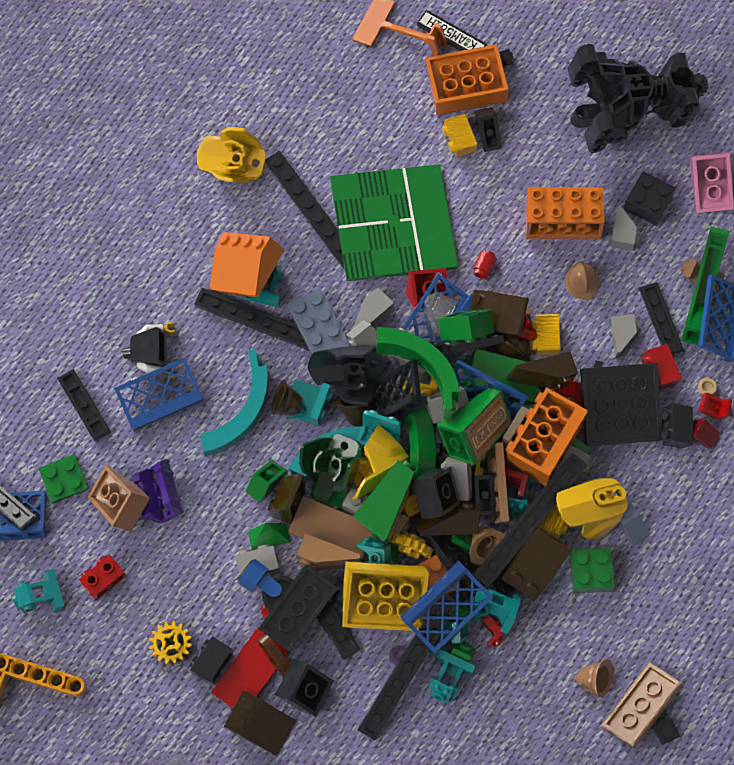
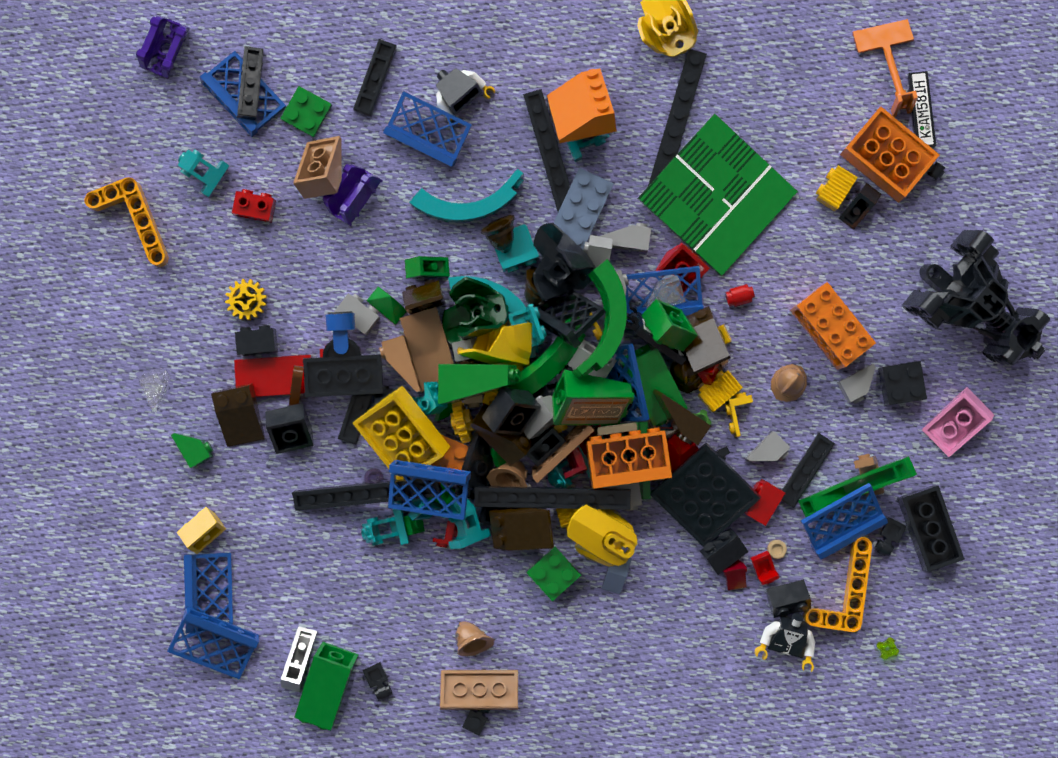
camera: 50 degrees right, 15 degrees up
(569, 337) = (739, 399): none -> yellow bracket

